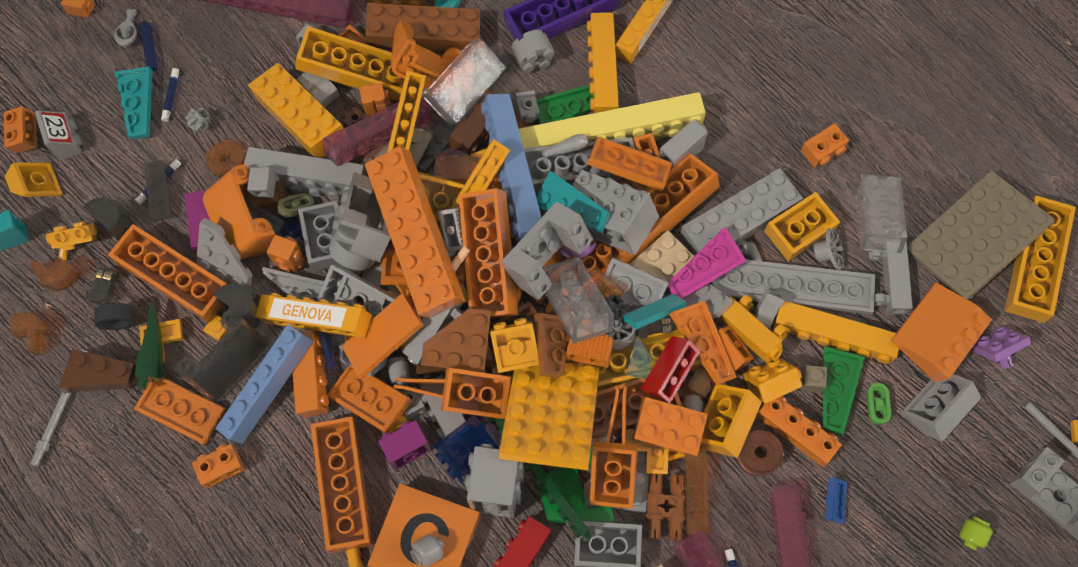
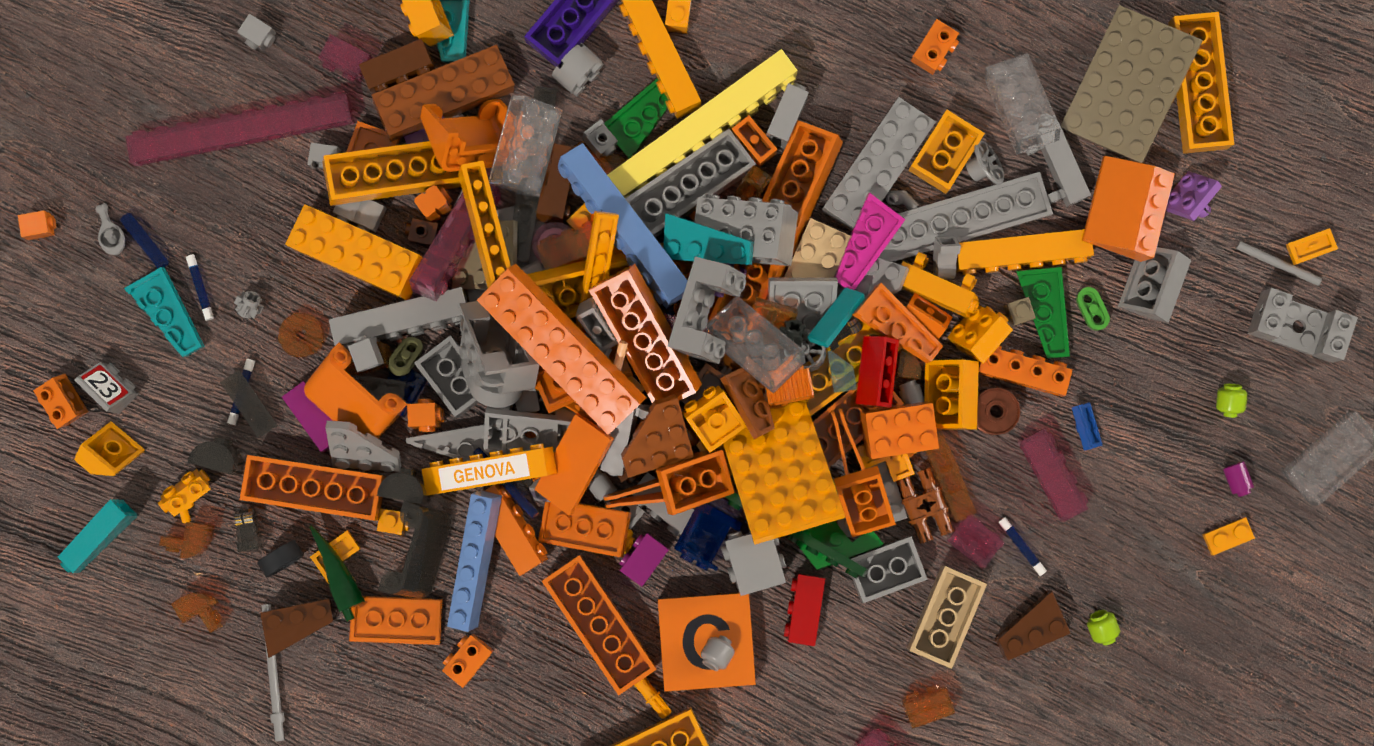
camera: 25 degrees left, 15 degrees up
(568, 145) = (671, 172): light grey piece -> none
(630, 163) = (742, 165): orange tile -> none

